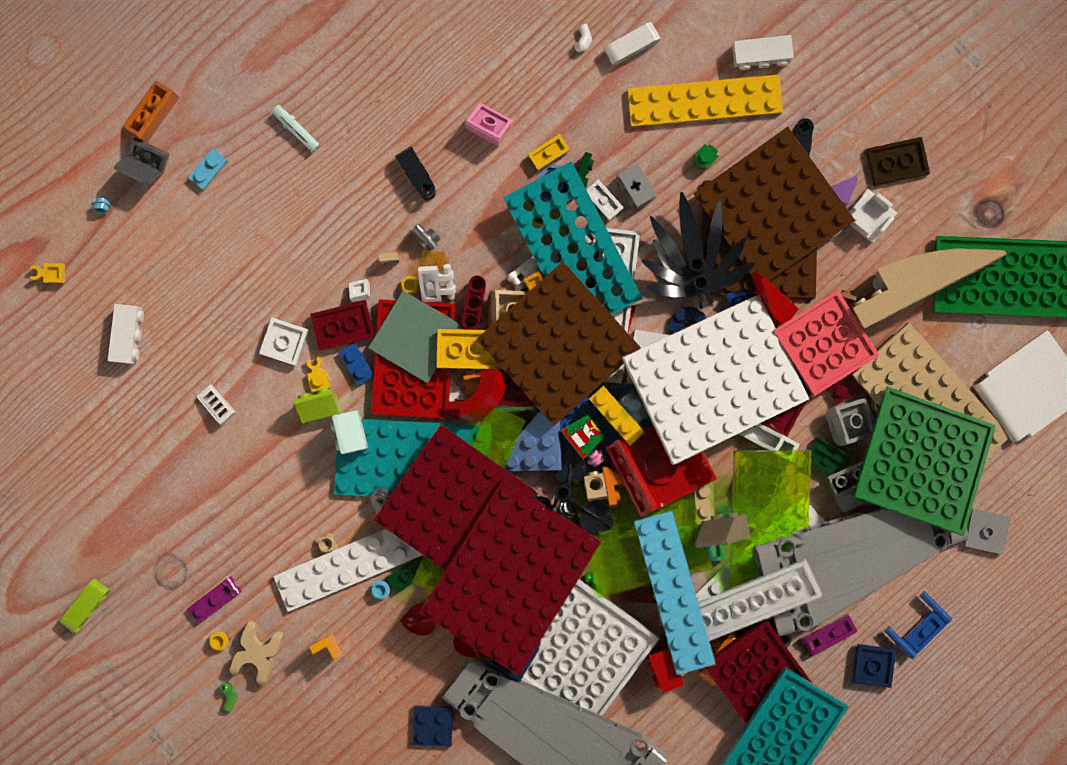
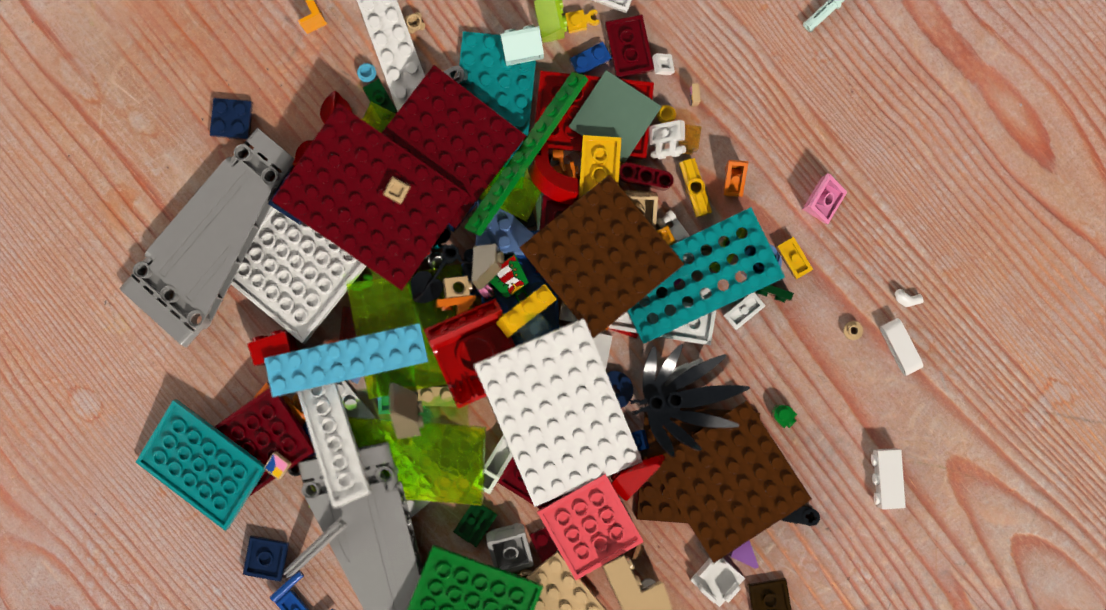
camera: 85 degrees right, 0 degrees up
(416, 173) = (778, 125): black piece -> none
(427, 239) = (711, 133): flat silver plate -> none
(455, 392) = (558, 156): none -> orange hand
(458, 423) = (526, 153): none -> green plate
(470, 257) = (698, 199): none -> yellow piece
(472, 214) = (735, 177): none -> orange slope
(503, 549) = (396, 190): none -> tan tile
(572, 457) = (486, 264): none -> dark tan slope
(618, 85) = (847, 330): none -> tan plate
(645, 191) = (767, 343): light grey brick -> none
(705, 101) = (840, 418): yellow plate -> none
(782, 656) = (277, 465): none -> tile
(829, 634) = (298, 515): magenta plate -> none
(843, 485) = (446, 537): light grey slope -> none
(862, 615) = (314, 548): none -> light grey axle

